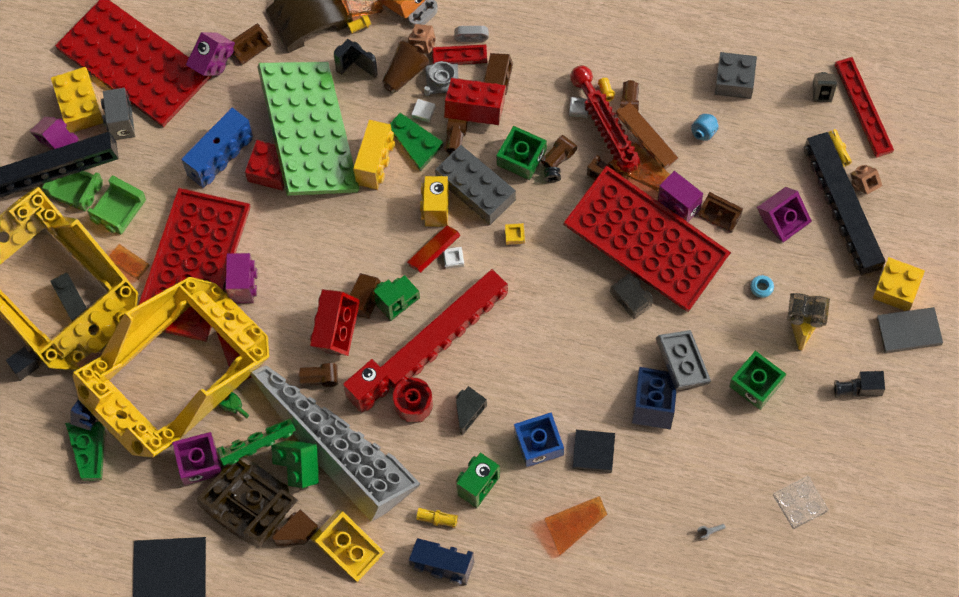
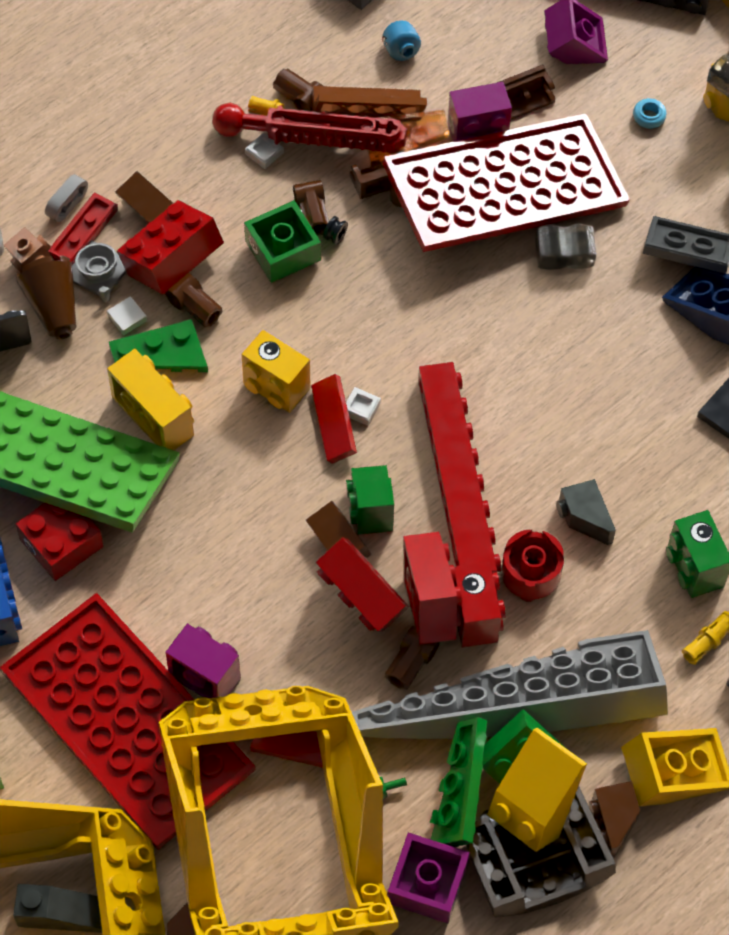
camera: 60 degrees left, 5 degrees down
(128, 262) = (66, 791): clear orange plate -> none
(268, 478) = (537, 791): none -> yellow slope
(355, 353) = (431, 587): none -> red brick
(476, 184) = (296, 313): dark grey brick -> none
(514, 234) = (384, 318): yellow plate -> none
(539, 439) = (688, 456): blue brick -> none

